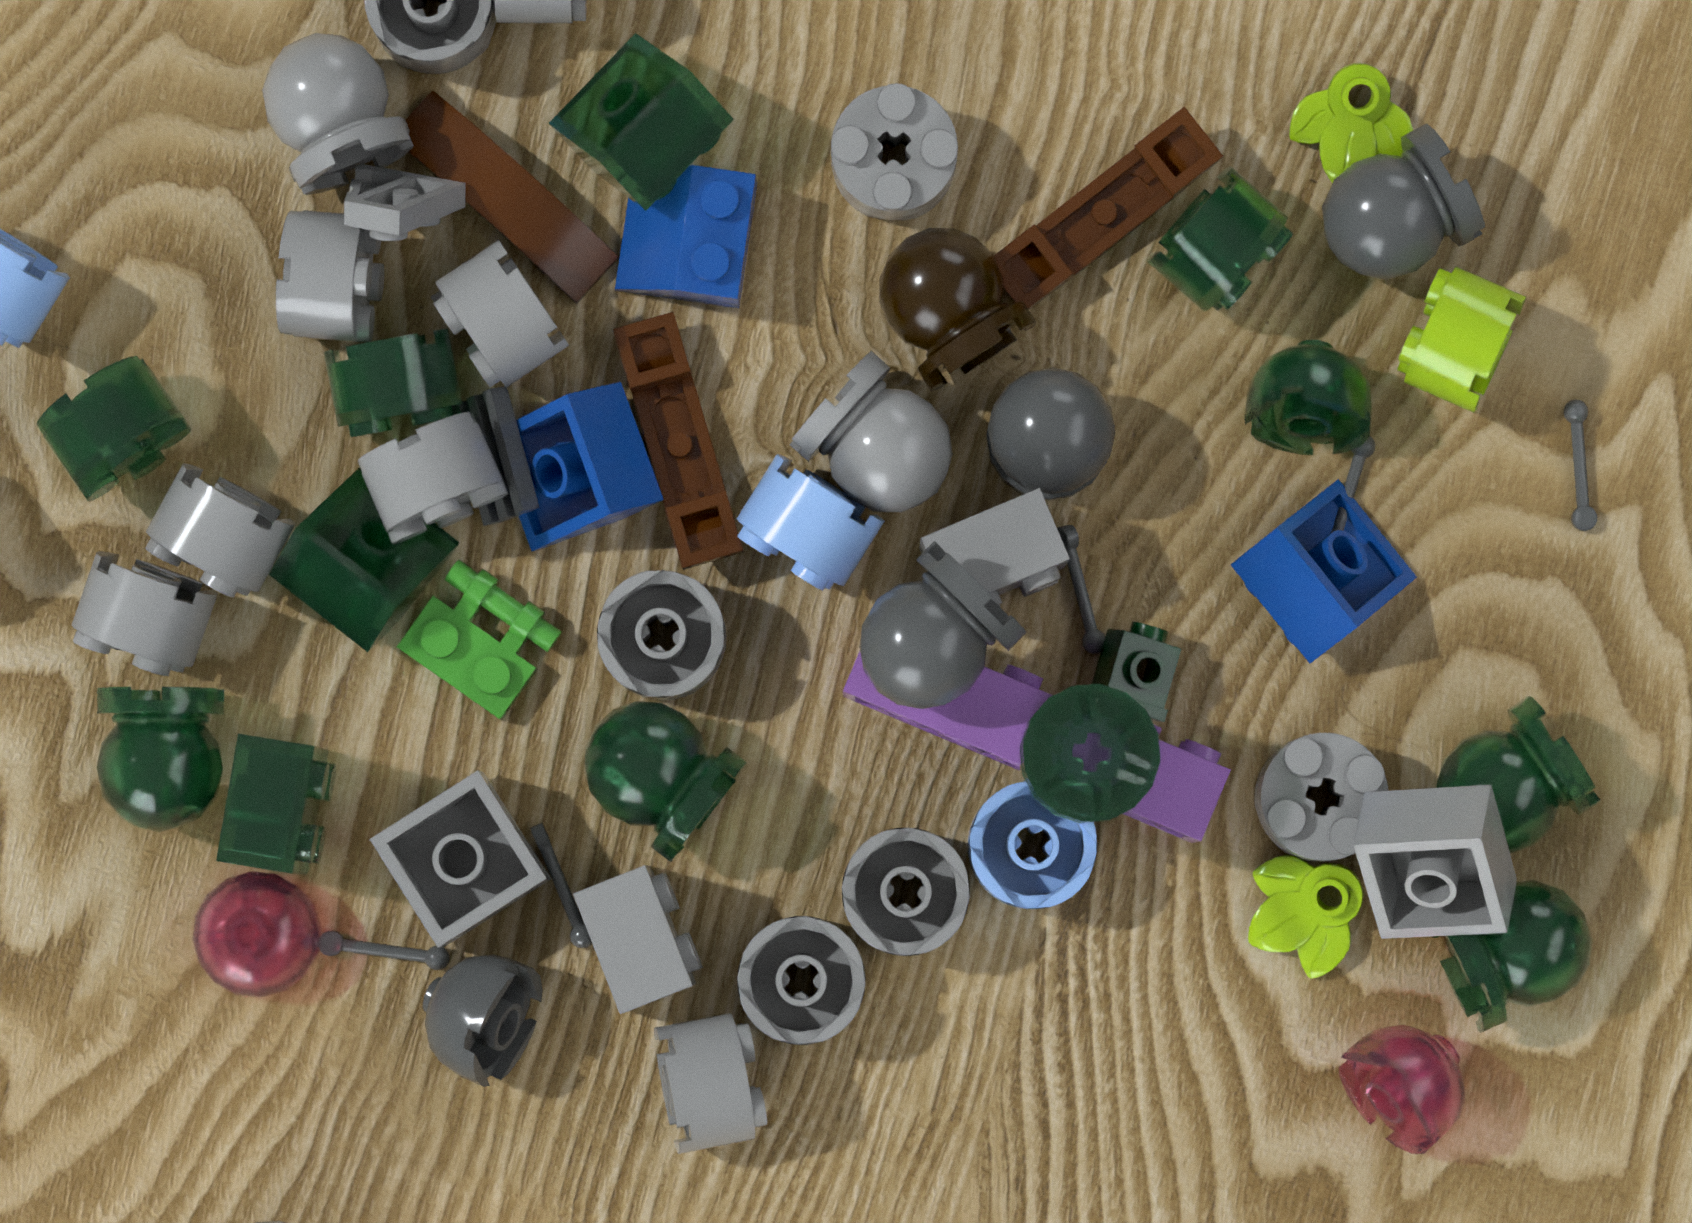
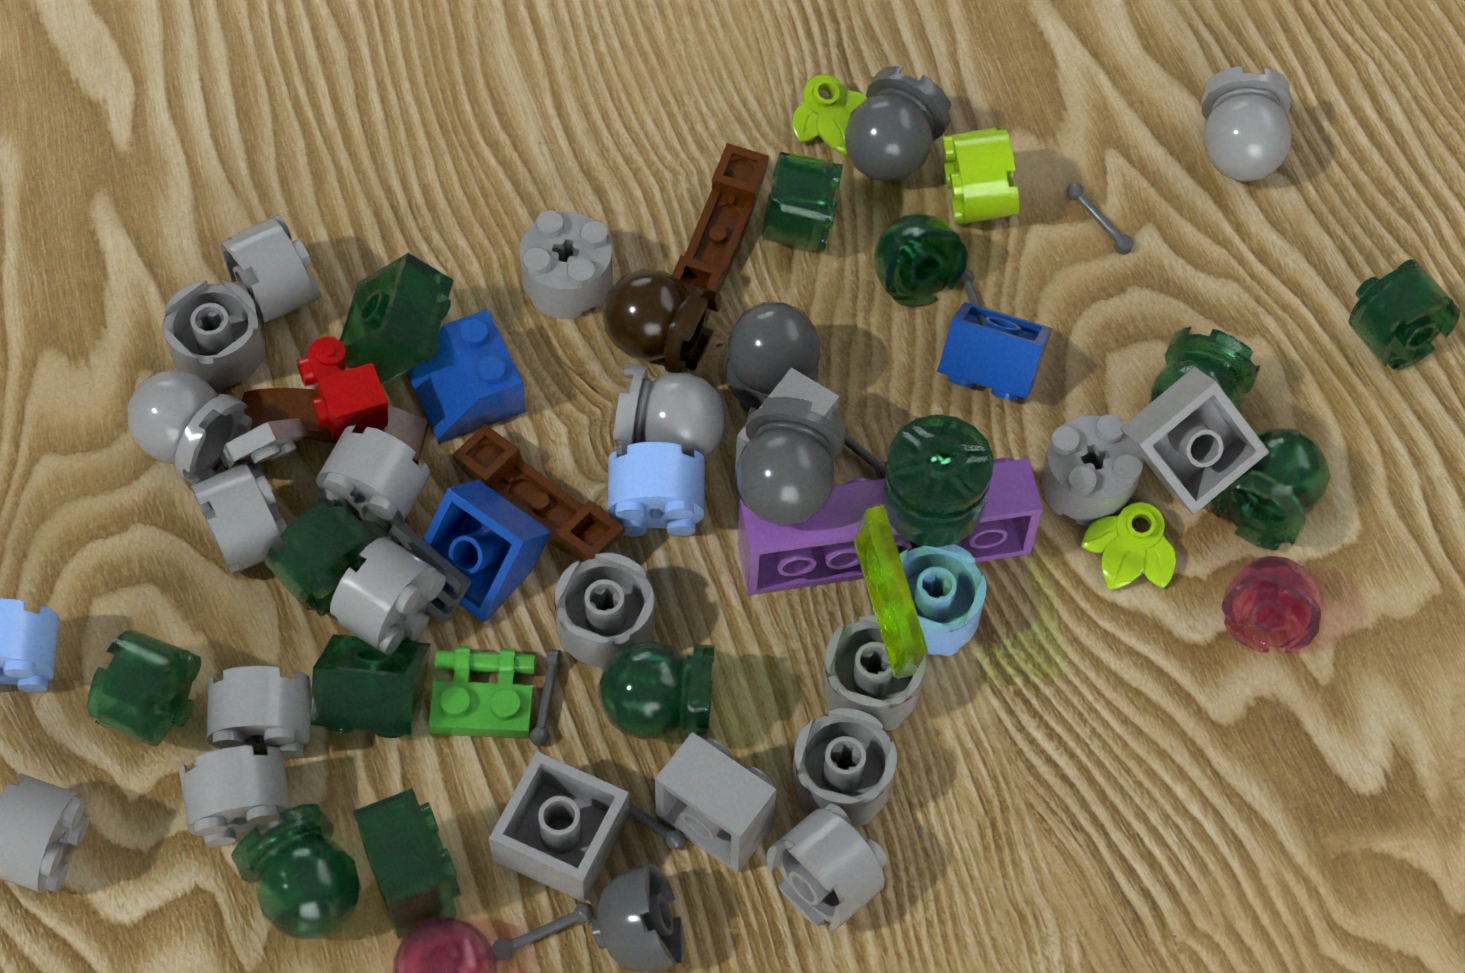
camera: 35 degrees left, 25 degrees down
(511, 726) = (539, 735): none -> dark grey hinge
(522, 200) = (343, 395): none -> red brick
(947, 853) = (889, 593): none -> clear neon green tile

